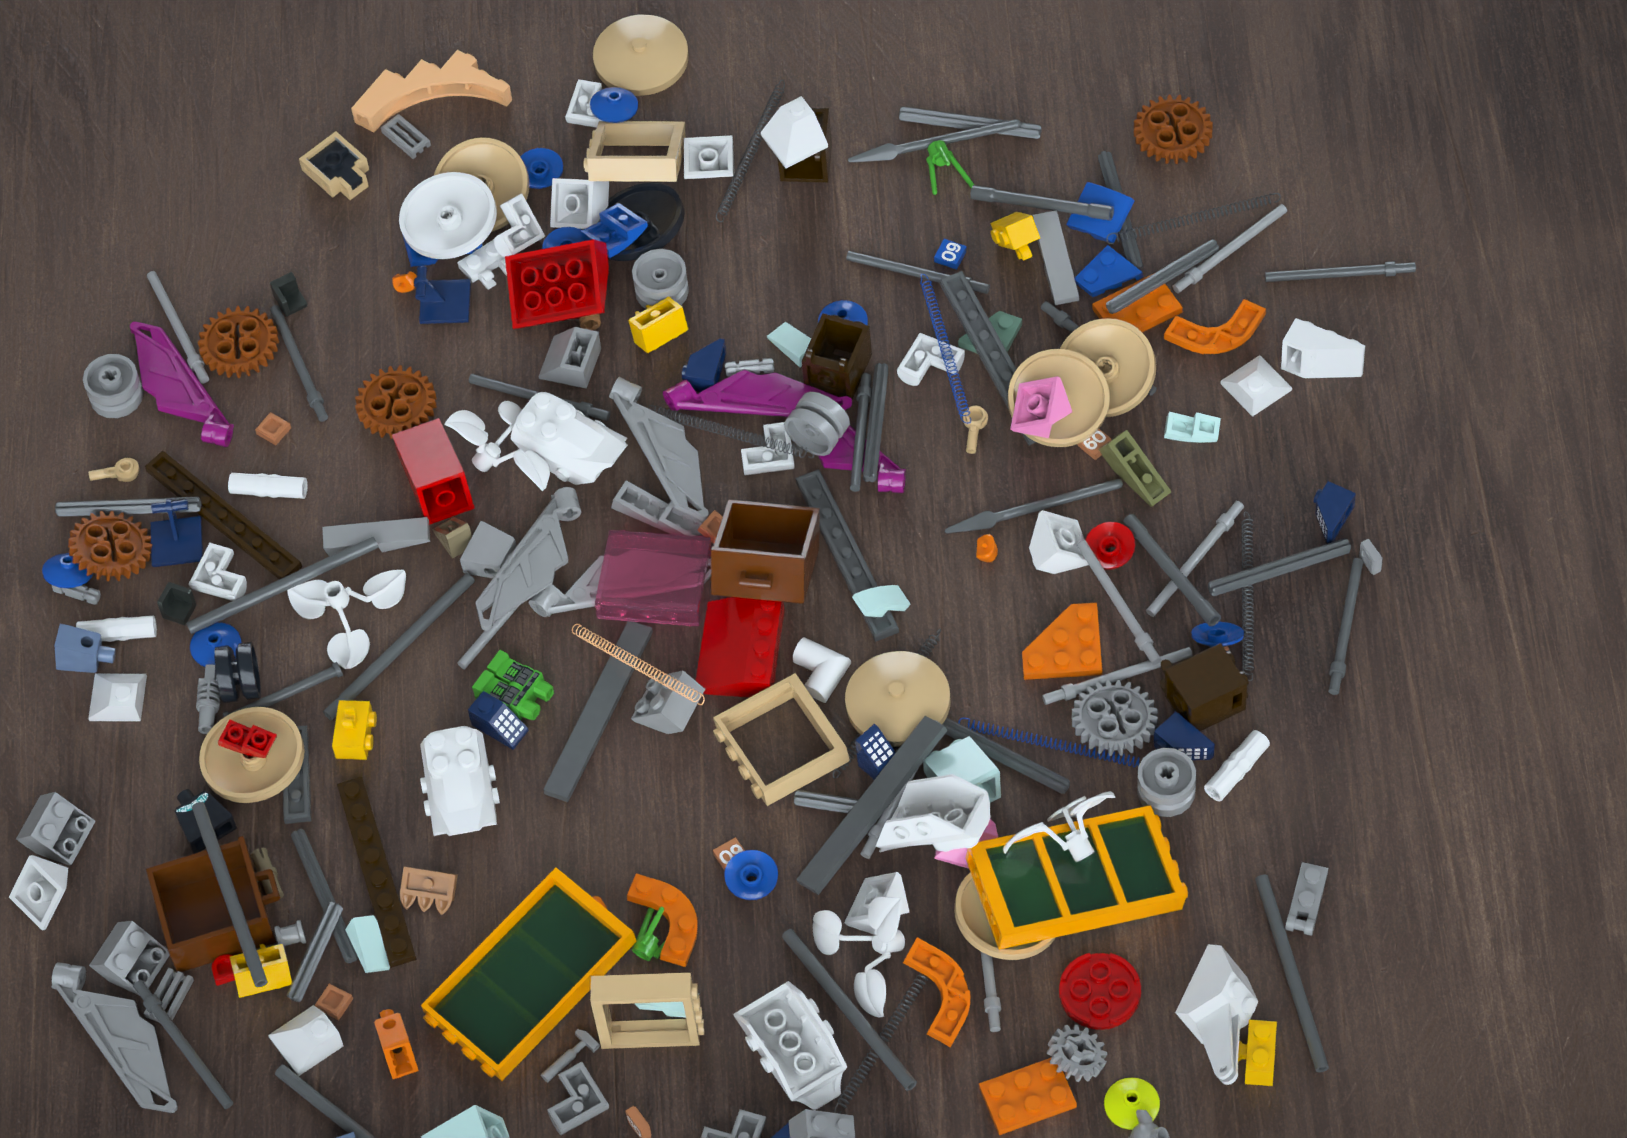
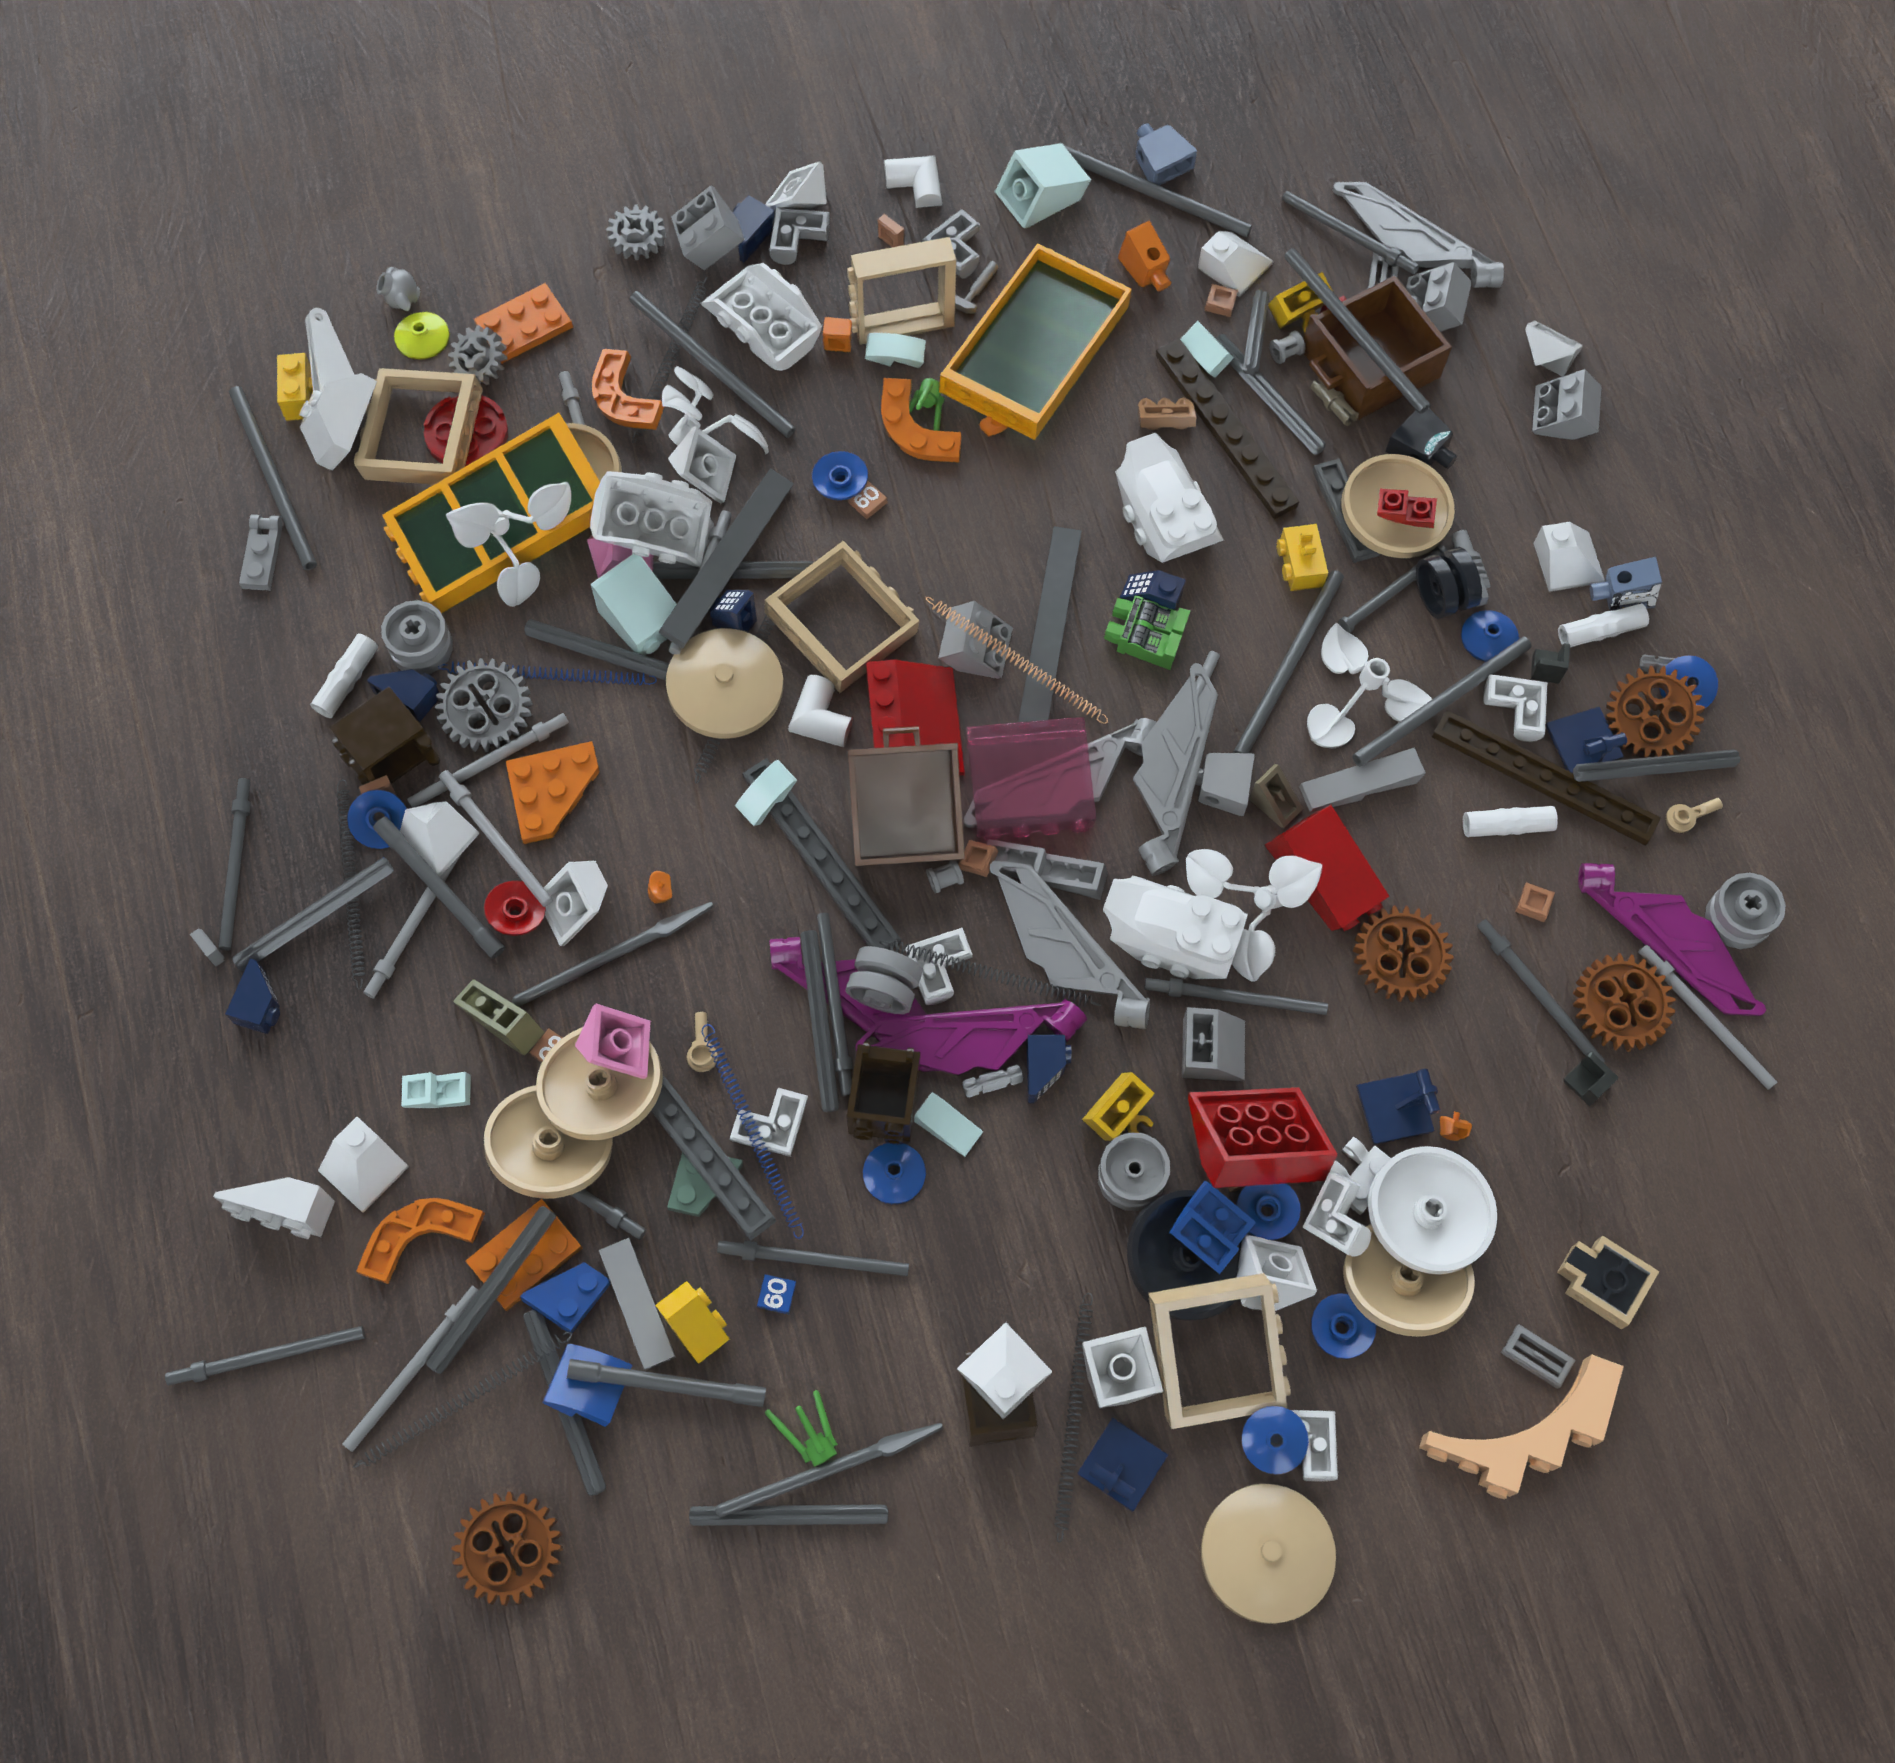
camera: 160 degrees right, 10 degrees up
(721, 1017) = (837, 334): none -> orange slope
(727, 112) = (1122, 1464): none -> dark blue plate
(1122, 1024) = (459, 437): none -> tan window
(1168, 616) = (437, 834): none -> white slope

